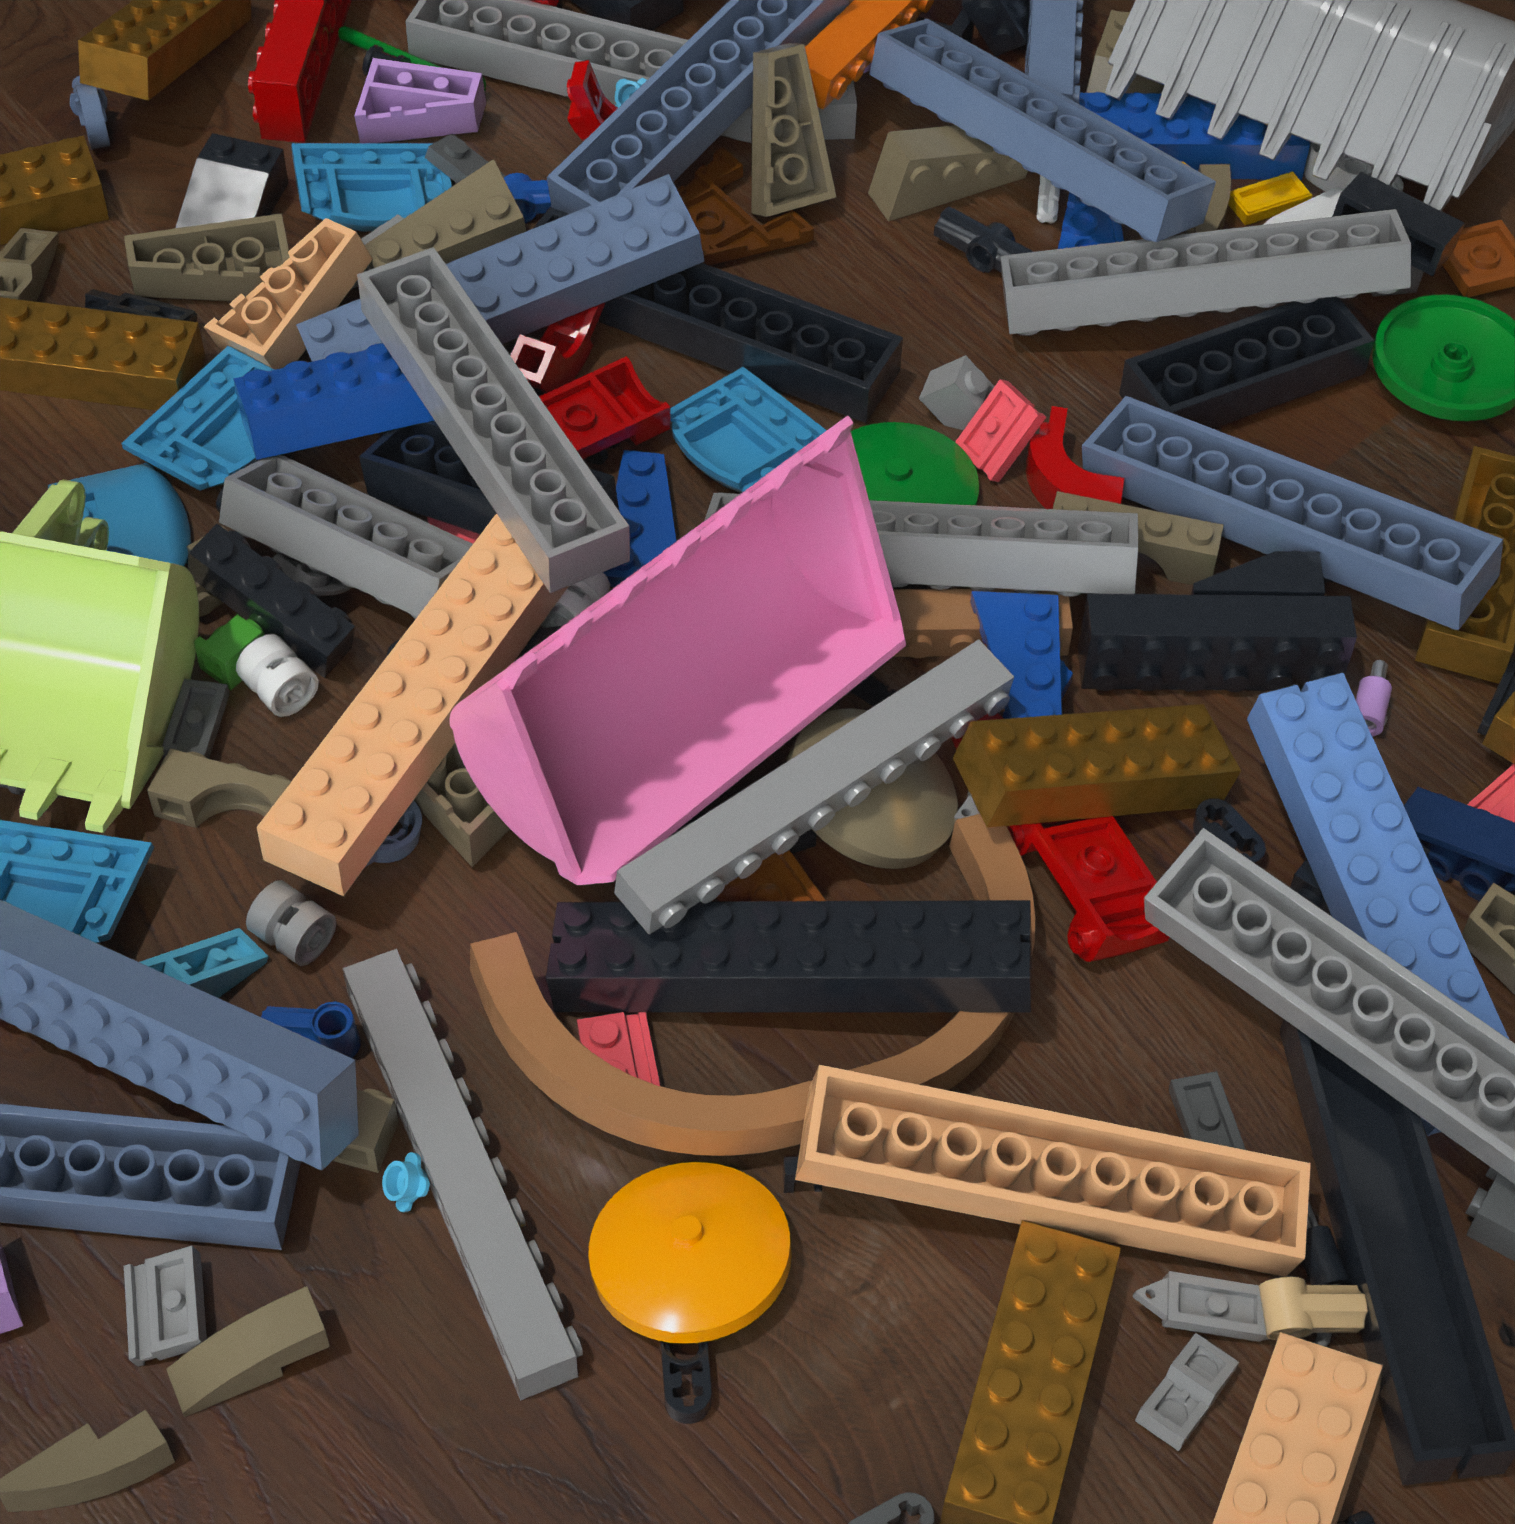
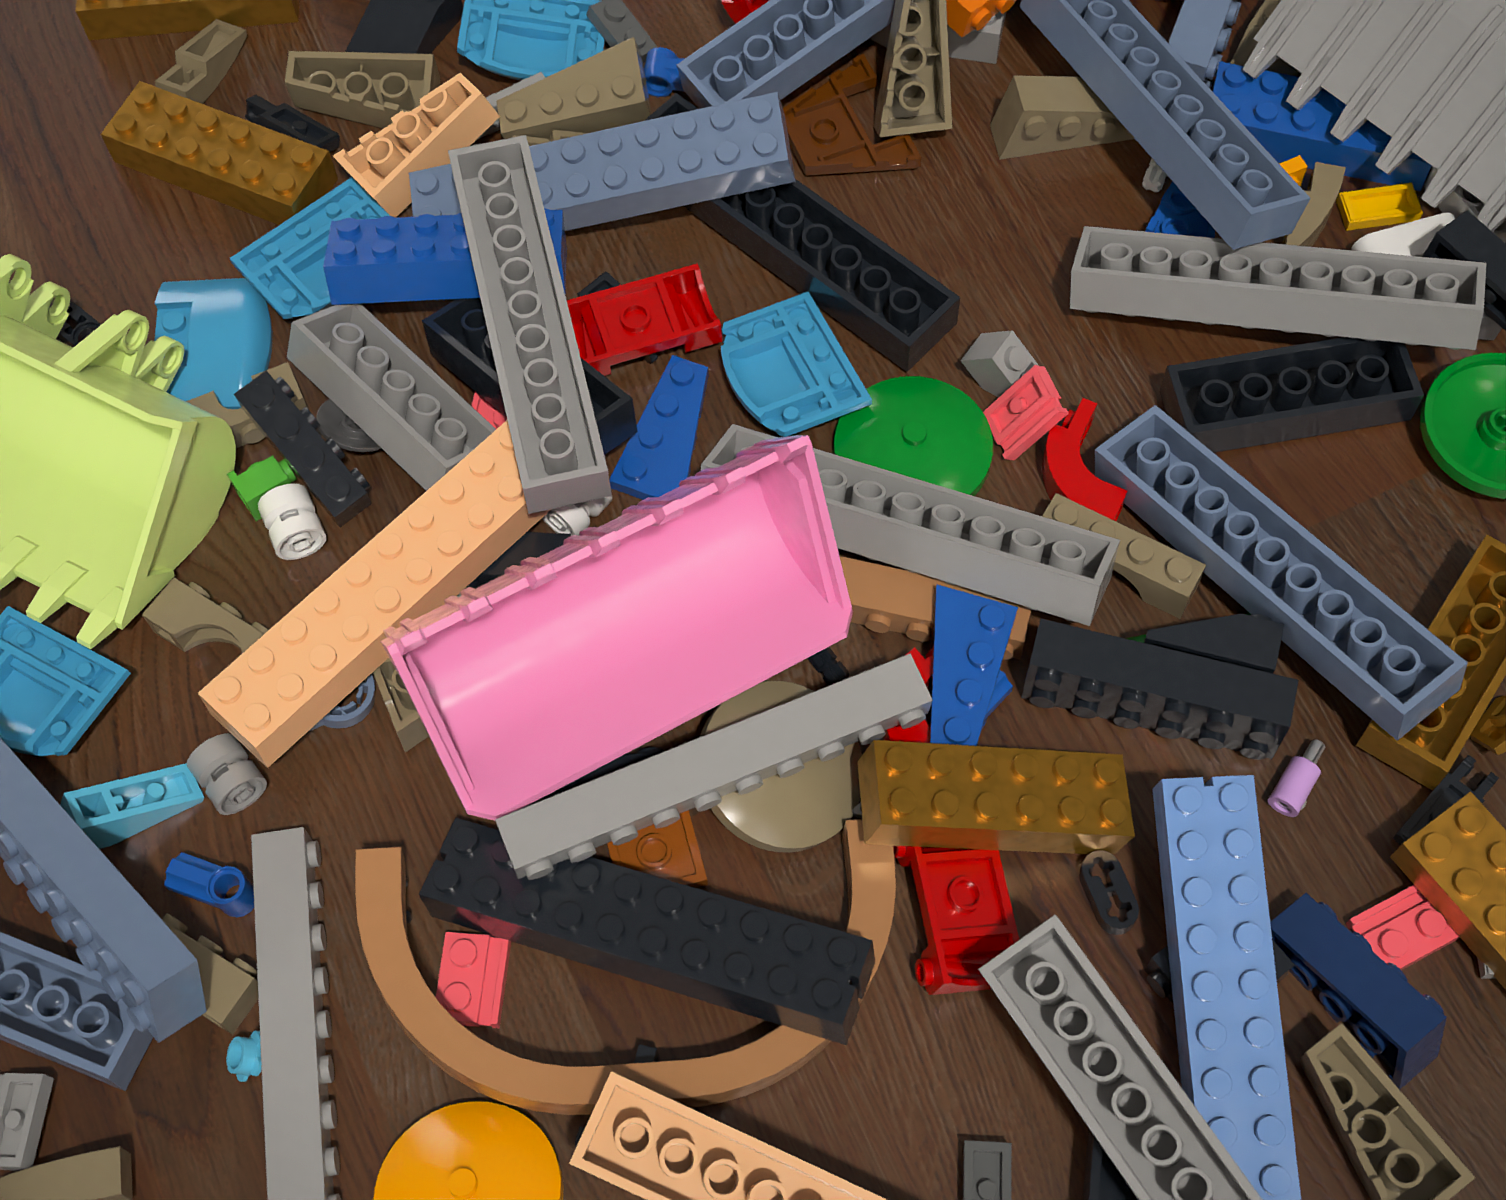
camera: 20 degrees right, 10 degrees up
(196, 717) = (211, 549): dark grey plate -> none
(559, 352) = (637, 249): red arch -> none
(979, 242) = (1076, 202): black piece -> none

